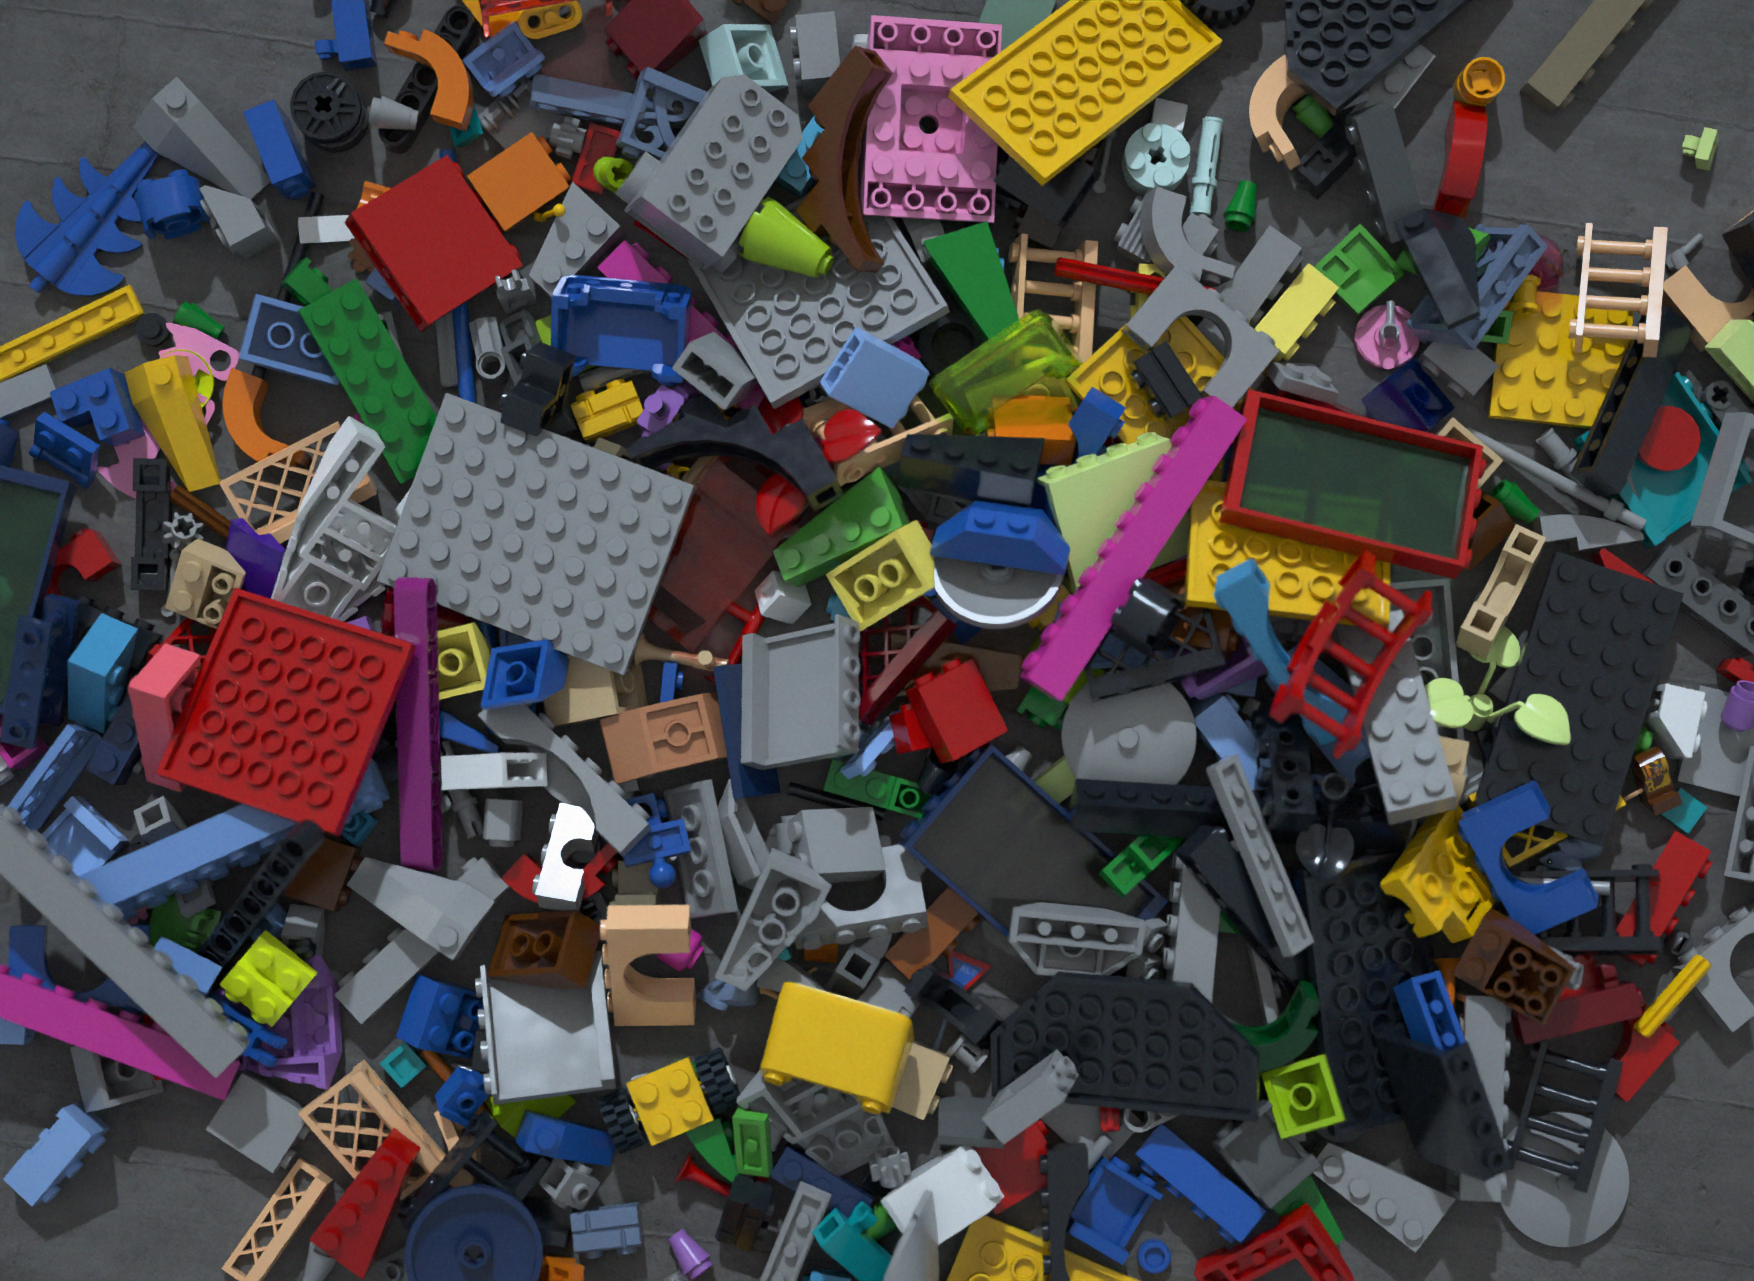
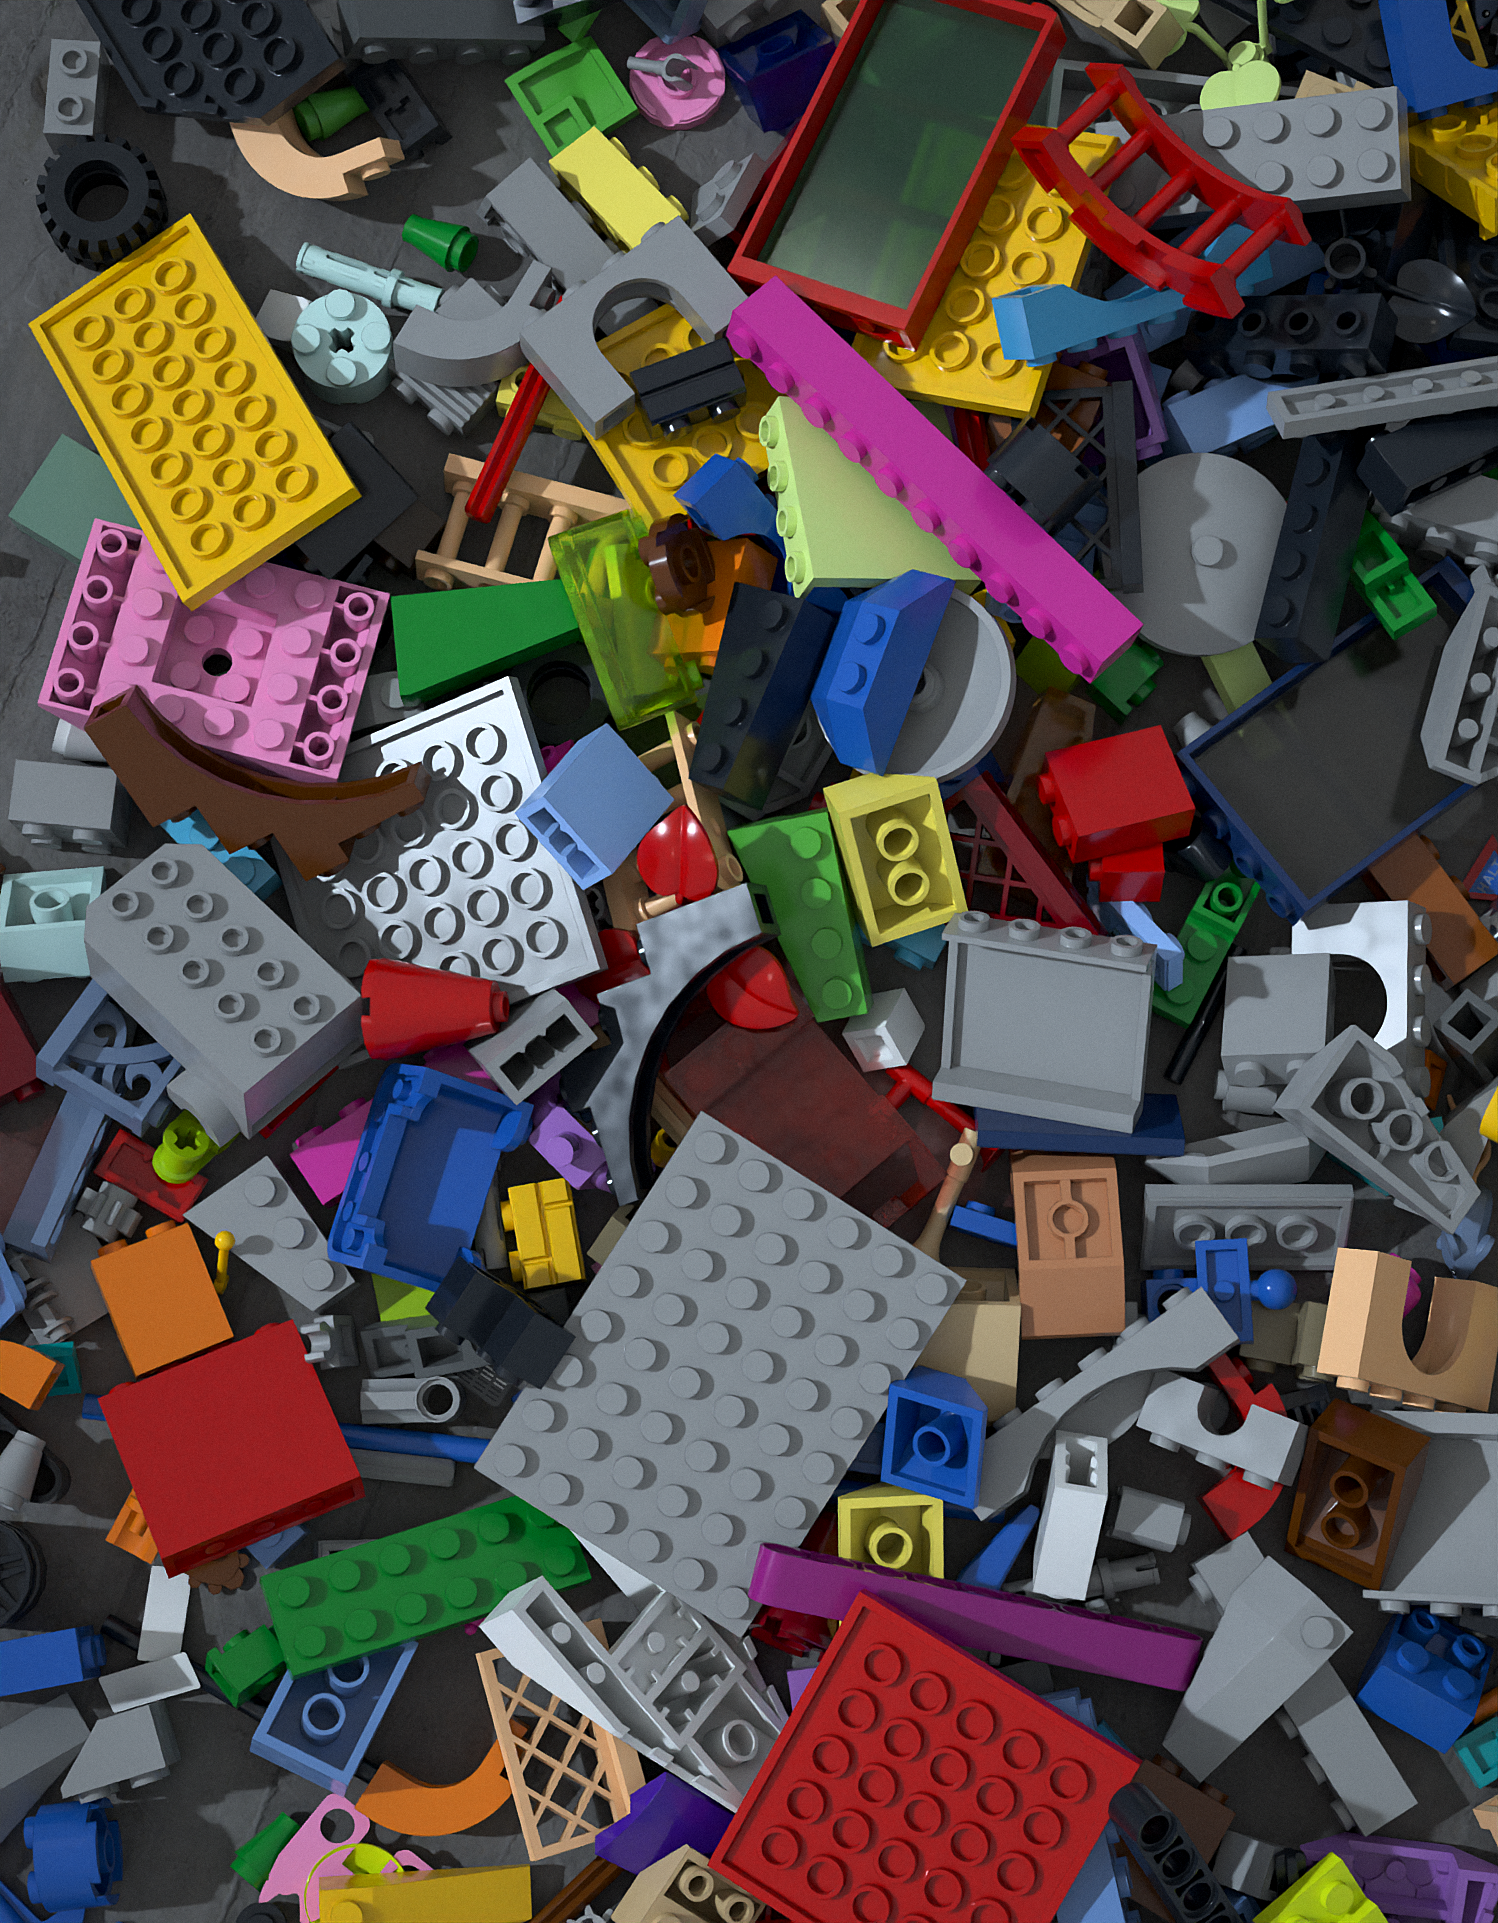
camera: 80 degrees left, 5 degrees down
(286, 228) = (149, 1682): none -> white sticker
(727, 300) = (426, 1008): none -> red cone
(784, 242) = (354, 905): lime cone -> none
(1030, 399) = (679, 566): none -> reddish brown plate

